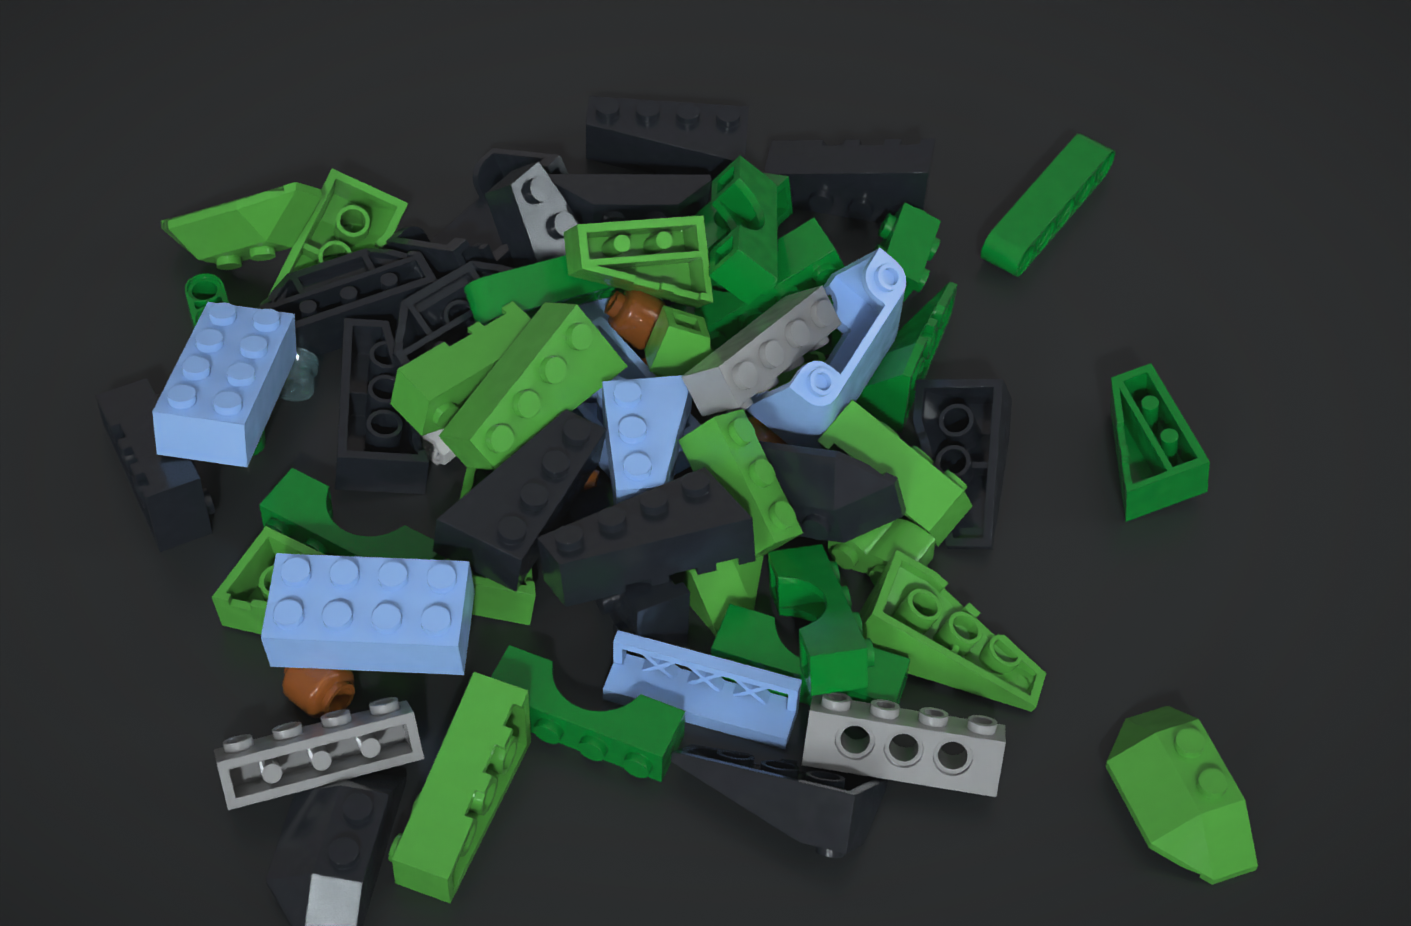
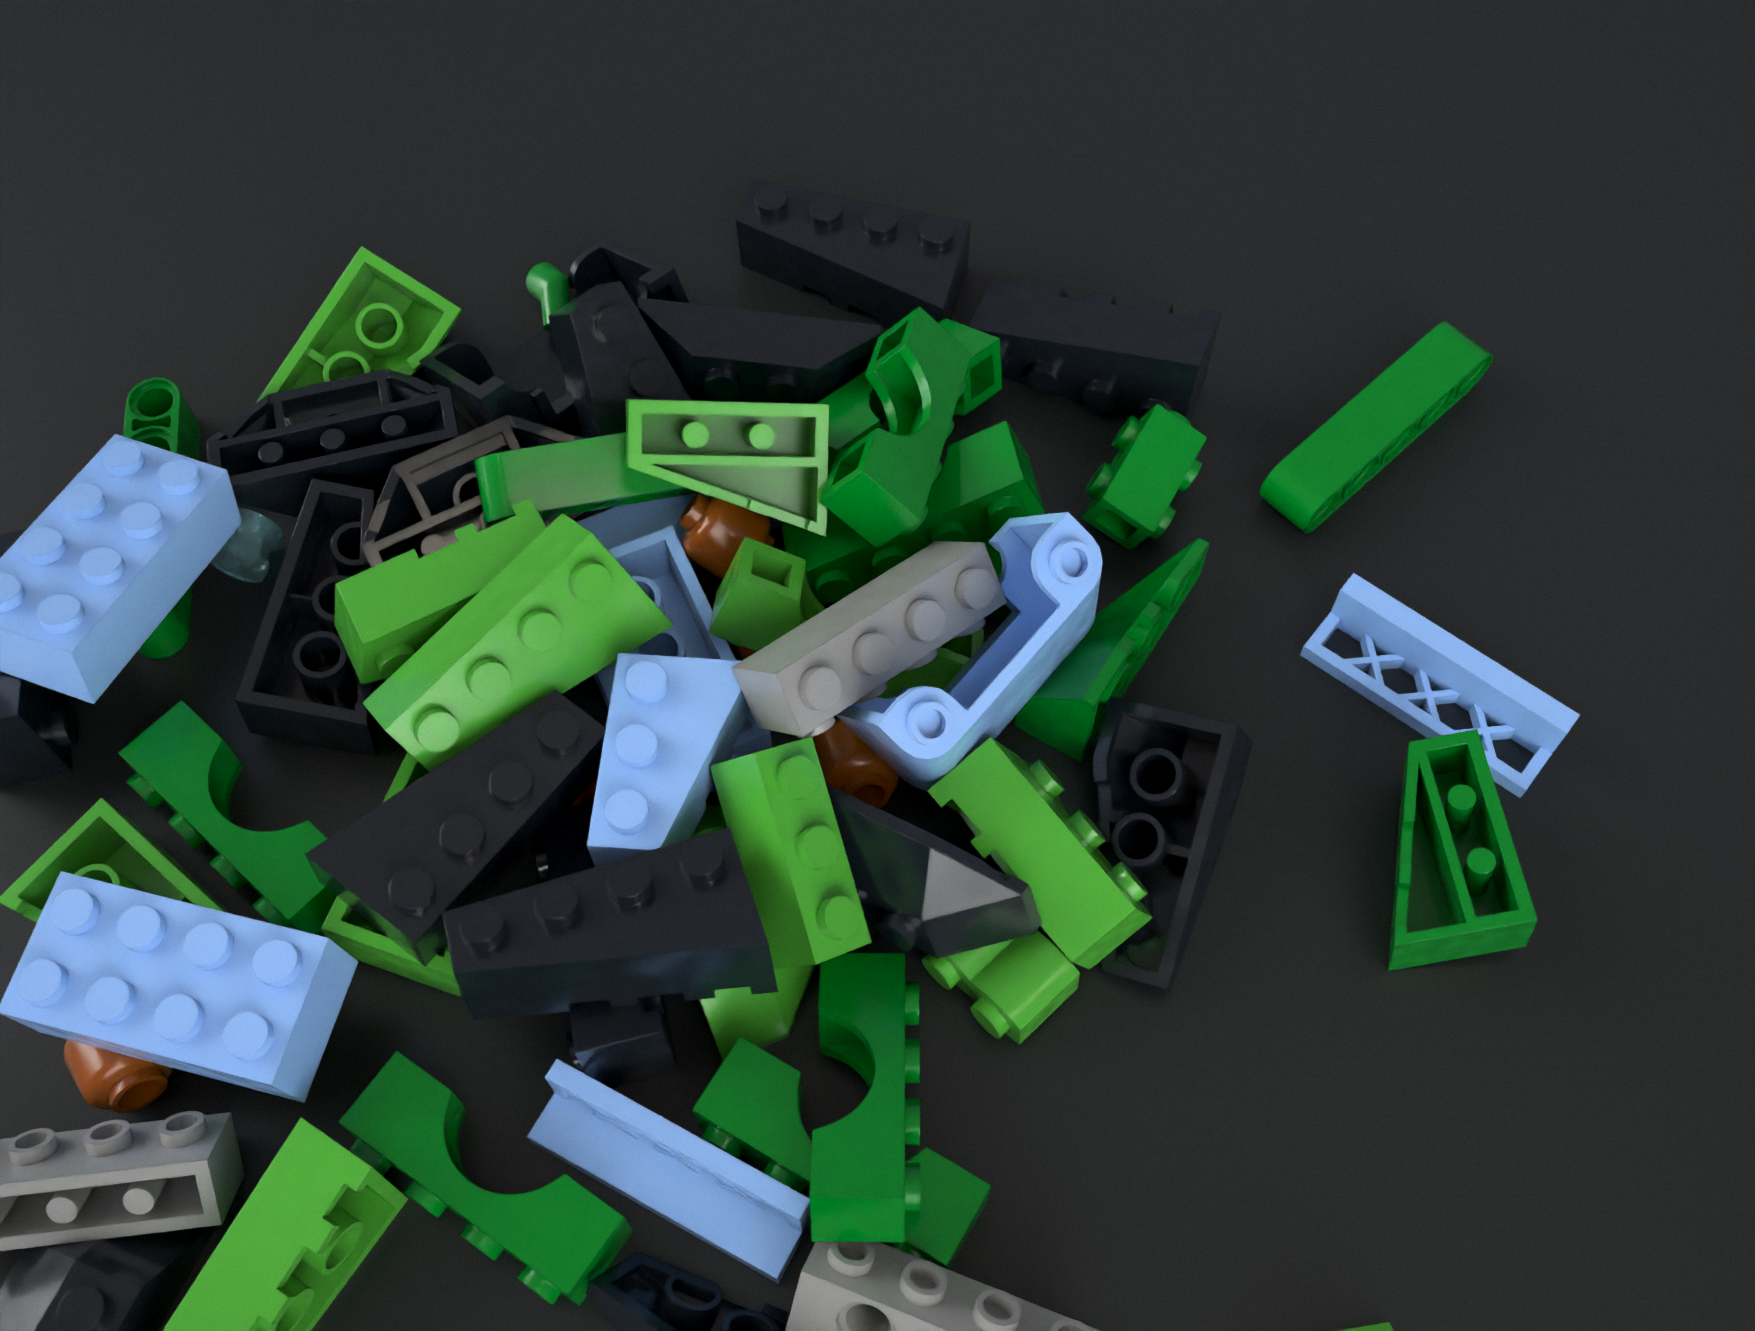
camera: 15 degrees right, 10 degrees up
(246, 227) = (227, 316): bright green wedge -> none
(461, 186) = (550, 288): none -> green arm
(943, 639) = (1042, 1133): bright green wedge -> none
(1124, 344) = (1447, 666): none -> light blue fence

